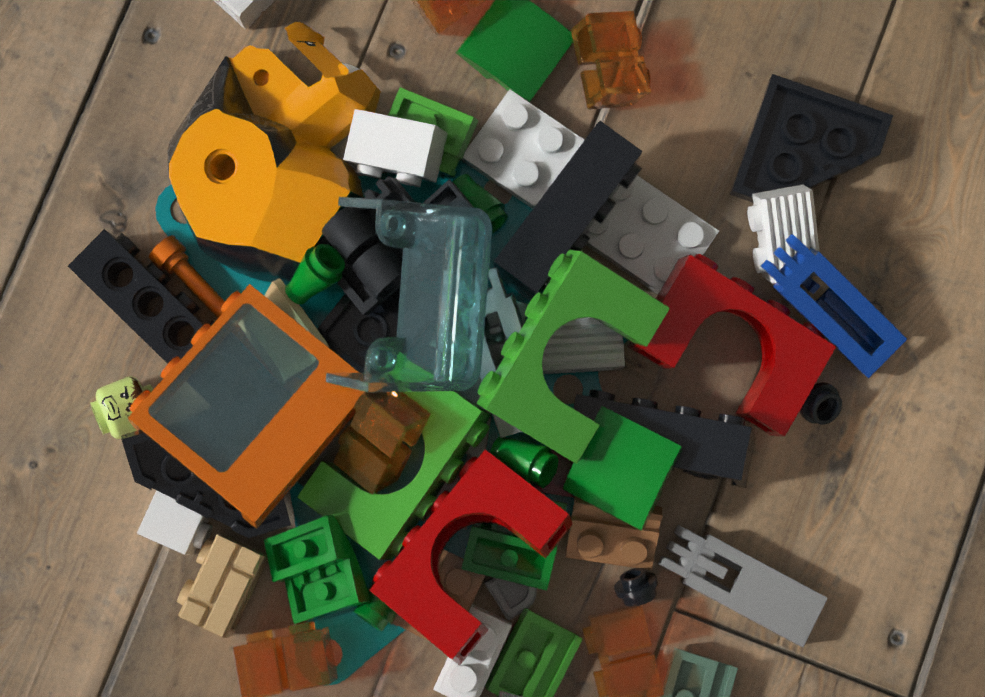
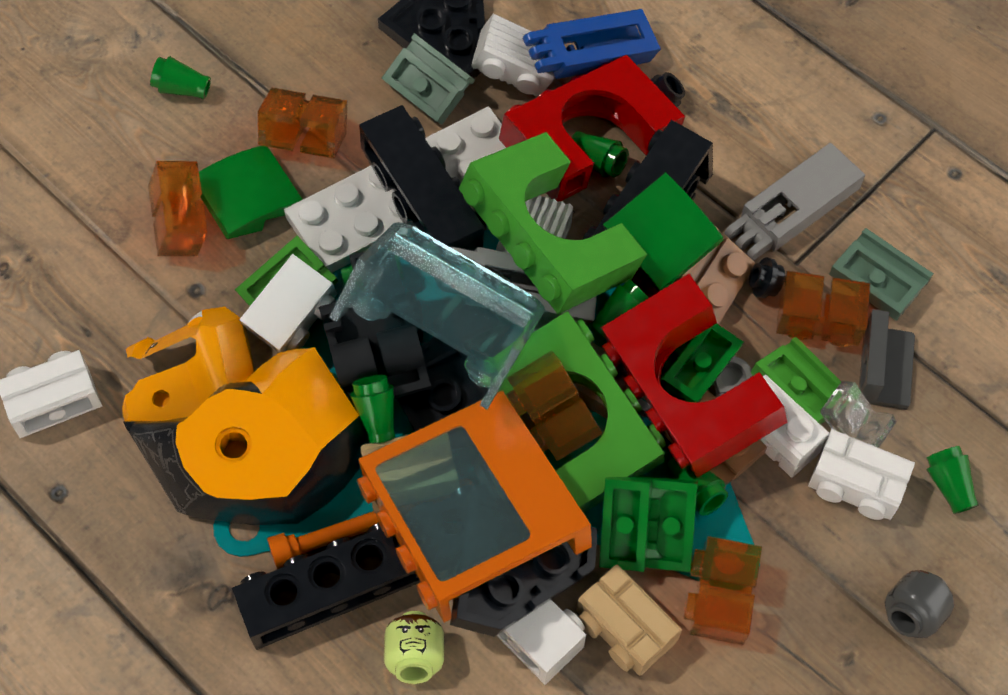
camera: 70 degrees left, 20 degrees down
(712, 365) = (607, 154): none -> green cone
(720, 157) = (428, 79): none -> sand green plate

